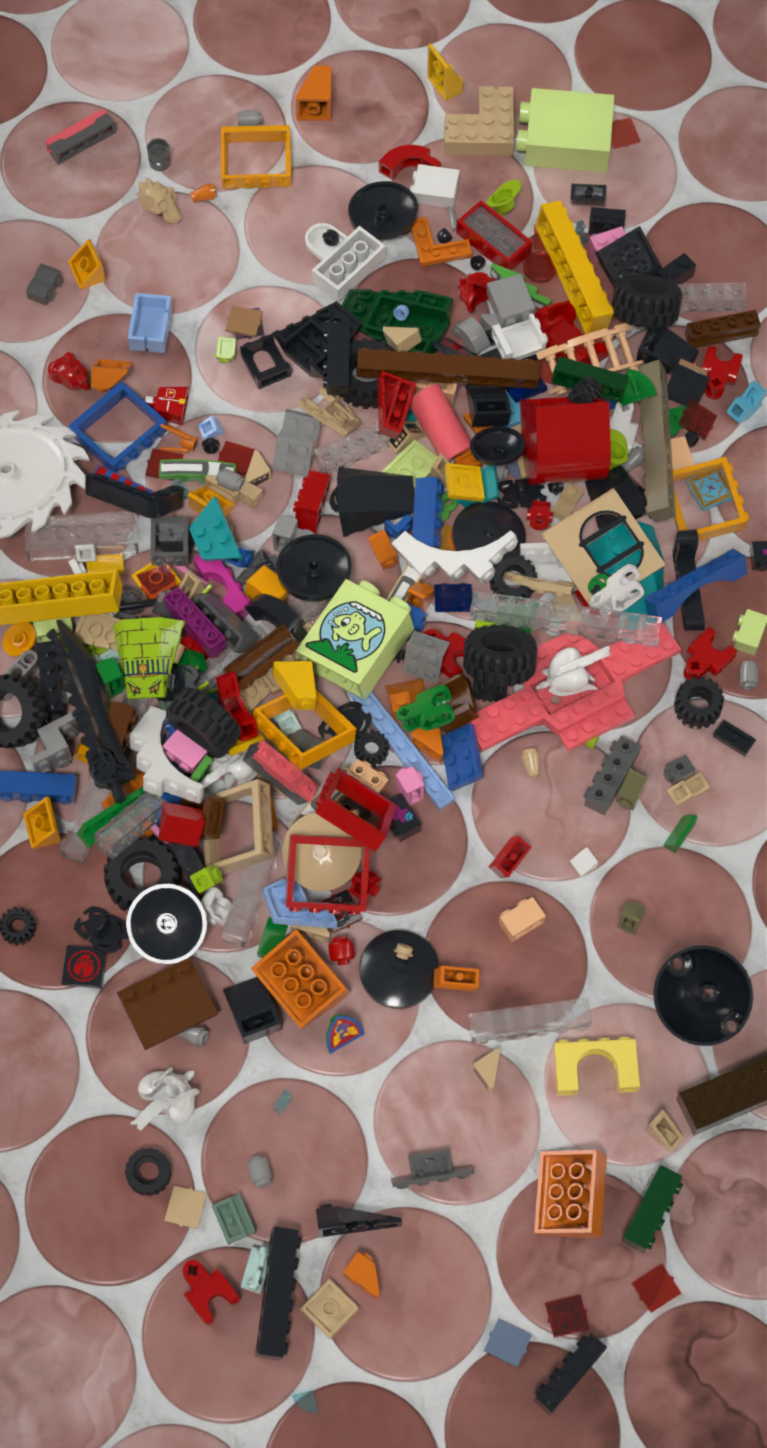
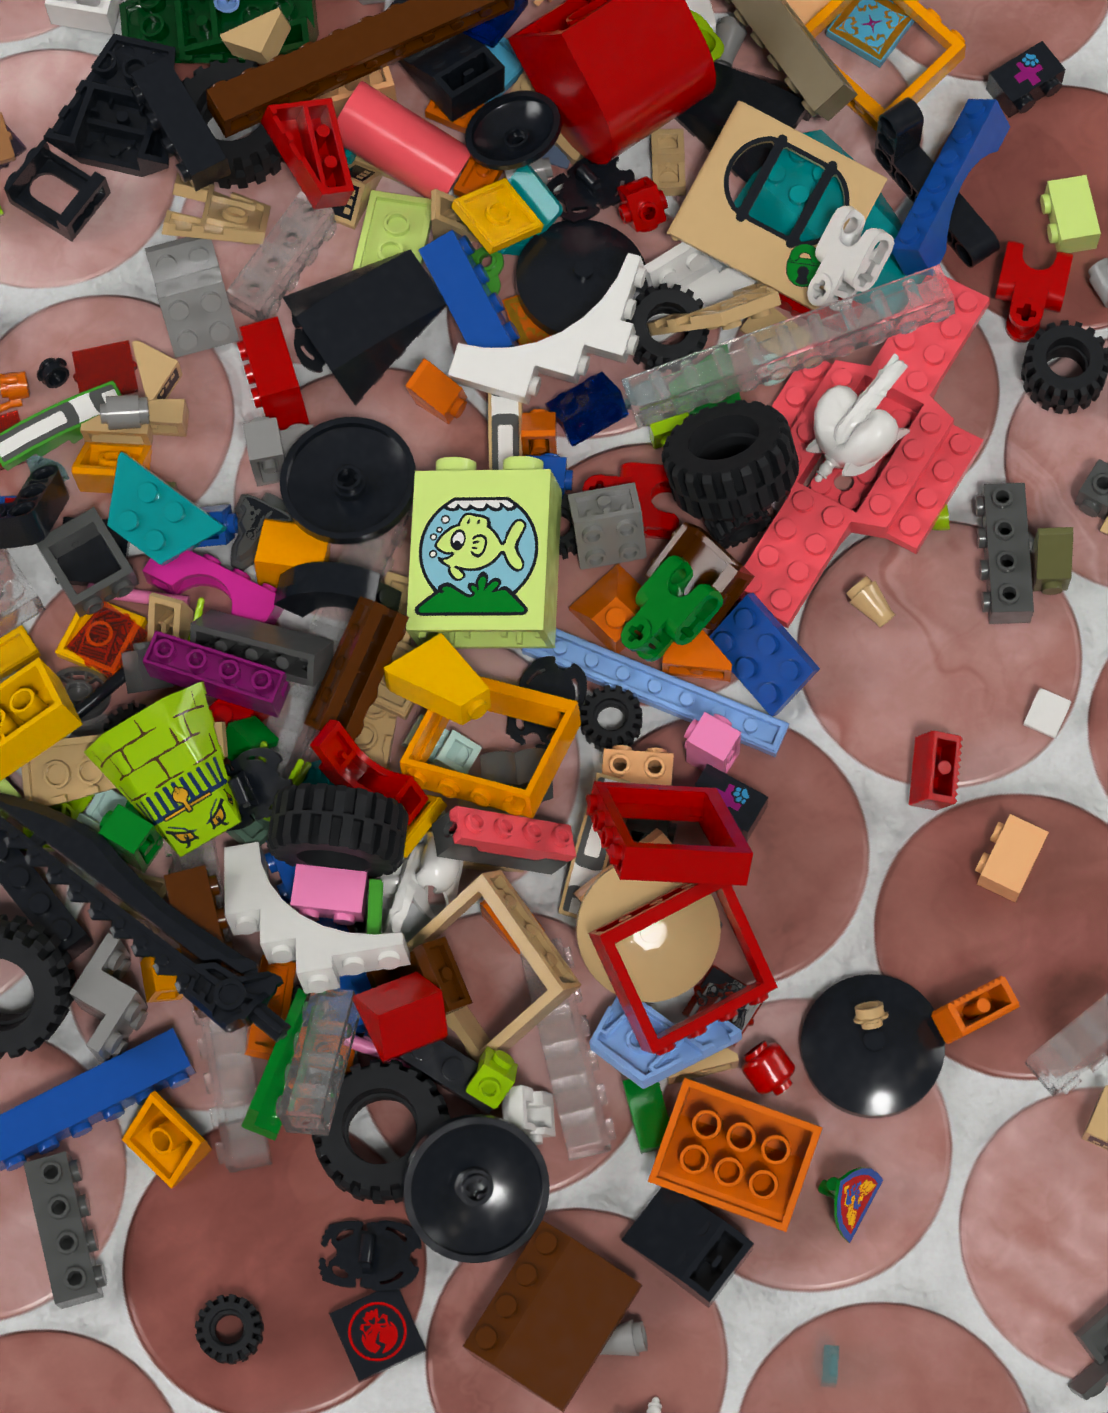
camera: 25 degrees left, 5 degrees up
(211, 428) = (35, 344): light blue slope -> none
(373, 885) = (733, 956): red brick -> none
(395, 531) = (442, 339): blue bracket -> none
(451, 347) = (342, 14): black tile -> none
(555, 488) = (639, 151): black plate -> none

